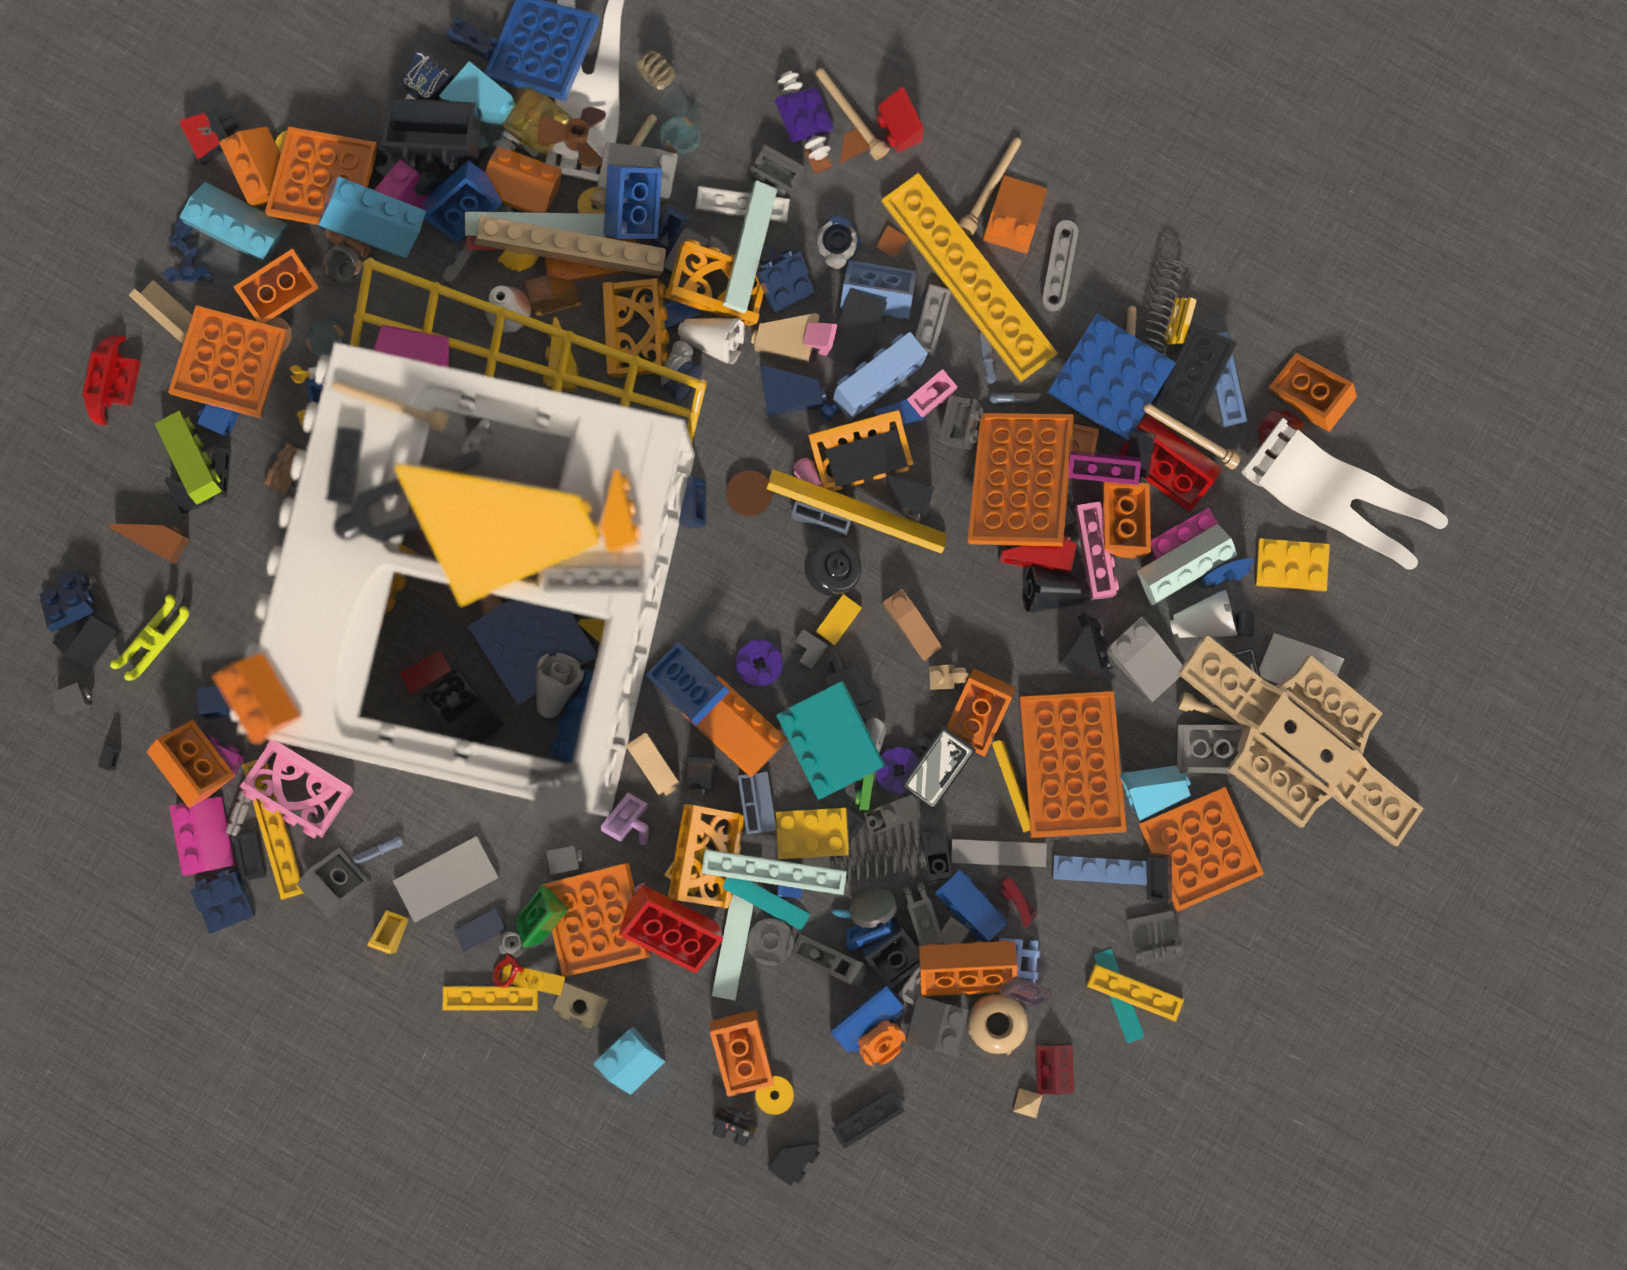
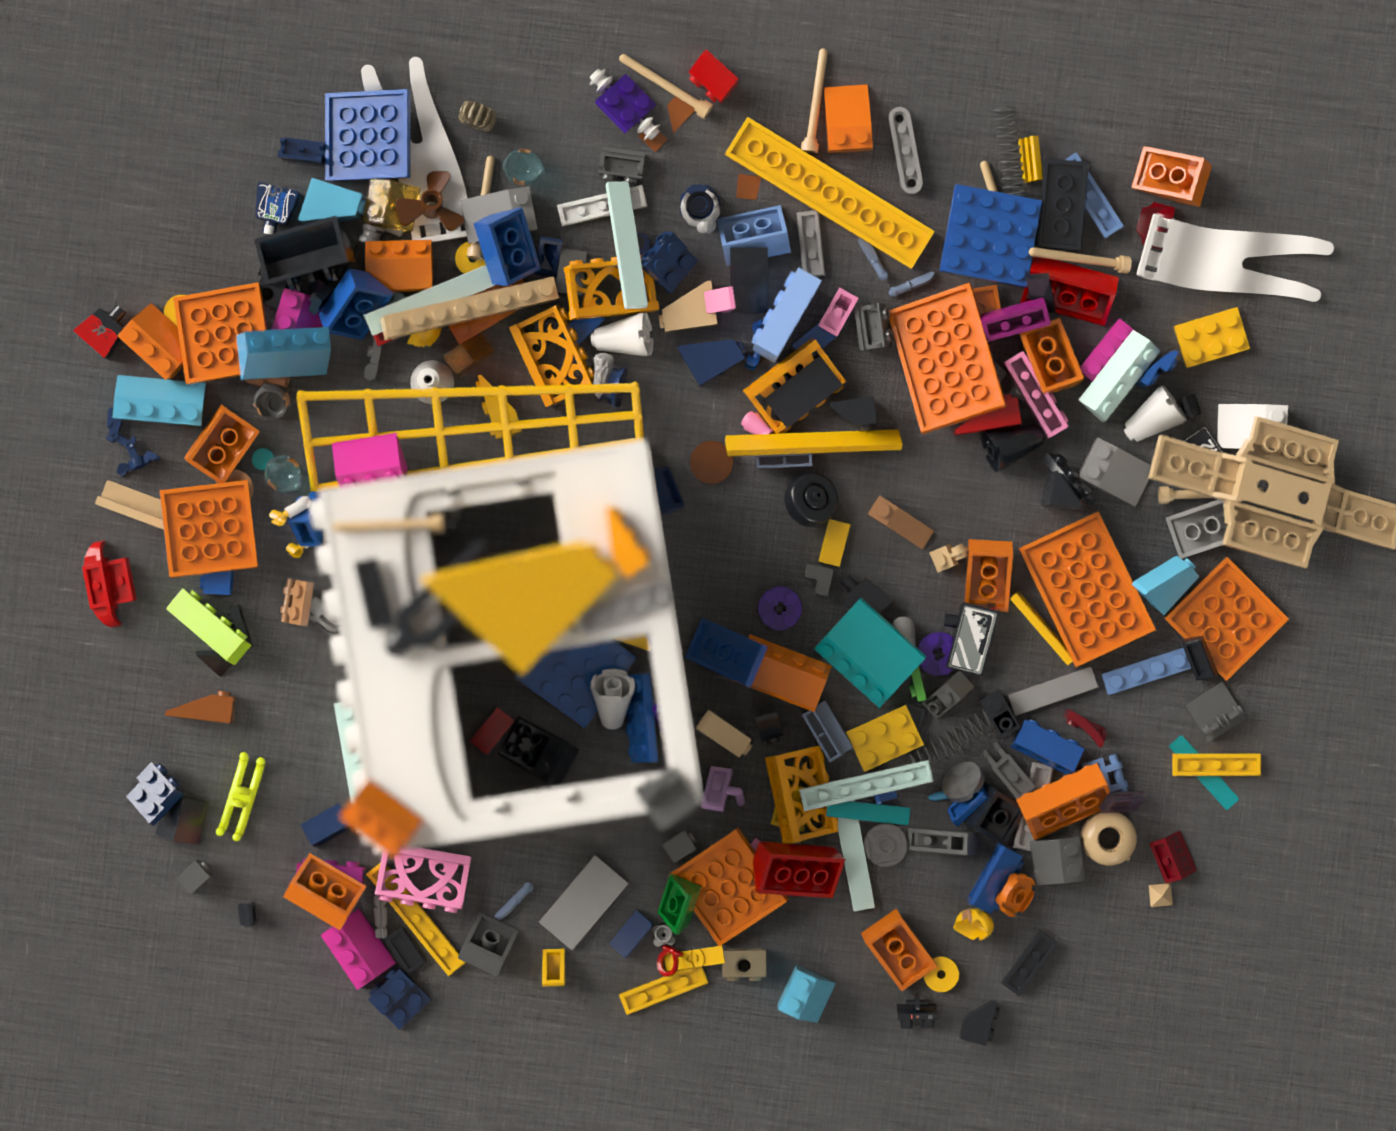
camera: 25 degrees left, 5 degrees up
(311, 315) = (261, 457): none -> teal piece
(828, 1056) = (974, 924): none -> yellow hair

